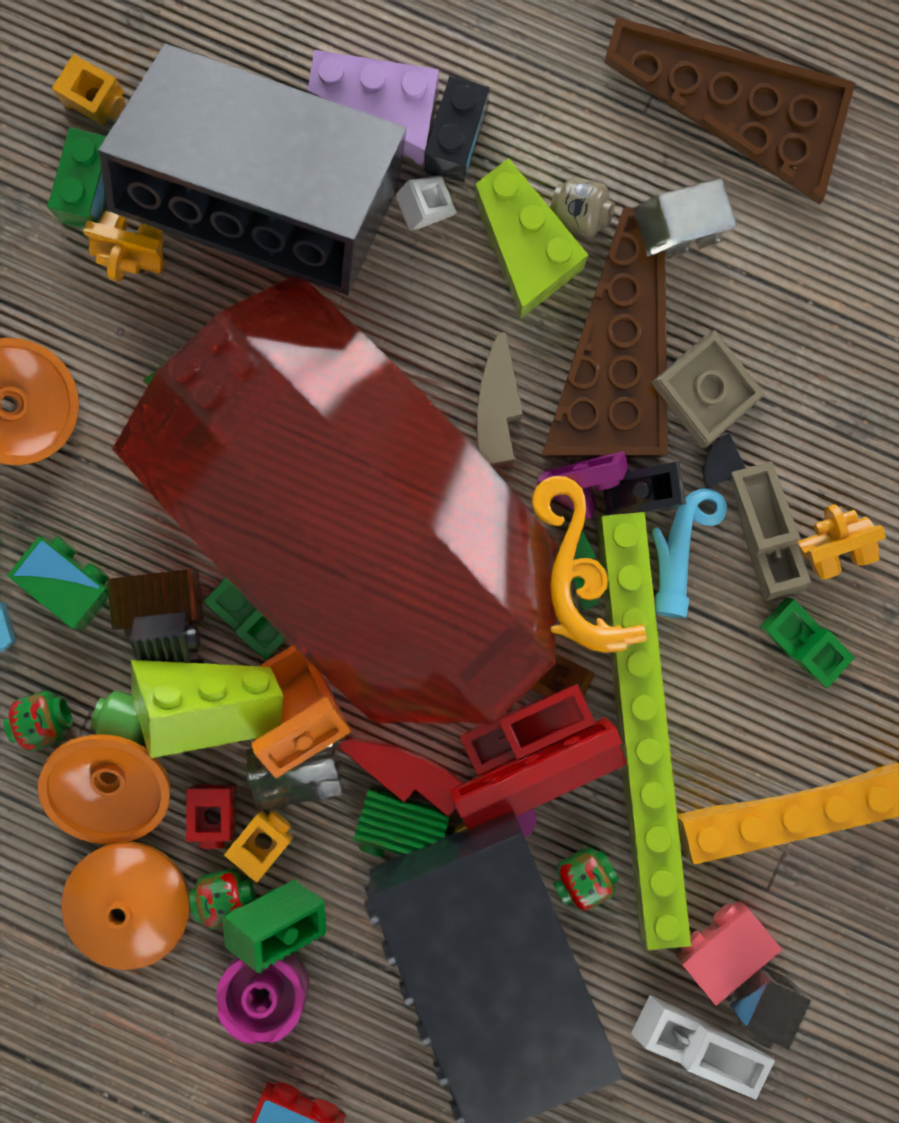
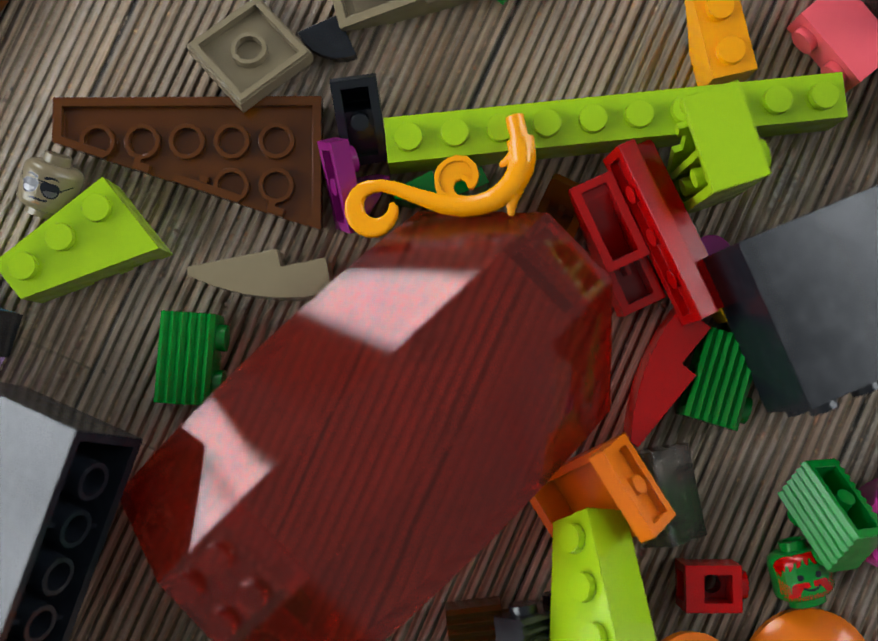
camera: 85 degrees left, 0 degrees up
(244, 618) = (499, 552): green slope -> none
(249, 854) = (753, 541): light orange brick -> none
(423, 336) = (189, 357): none -> green brick
(425, 202) = (42, 357): white slope -> none
(585, 879) = (778, 190): green head -> none
(613, 820) = (717, 148): none -> lime wedge
(674, 556) = (427, 89): medium azure plant -> none
(684, 218) = (64, 74): clear smoke brick -> none

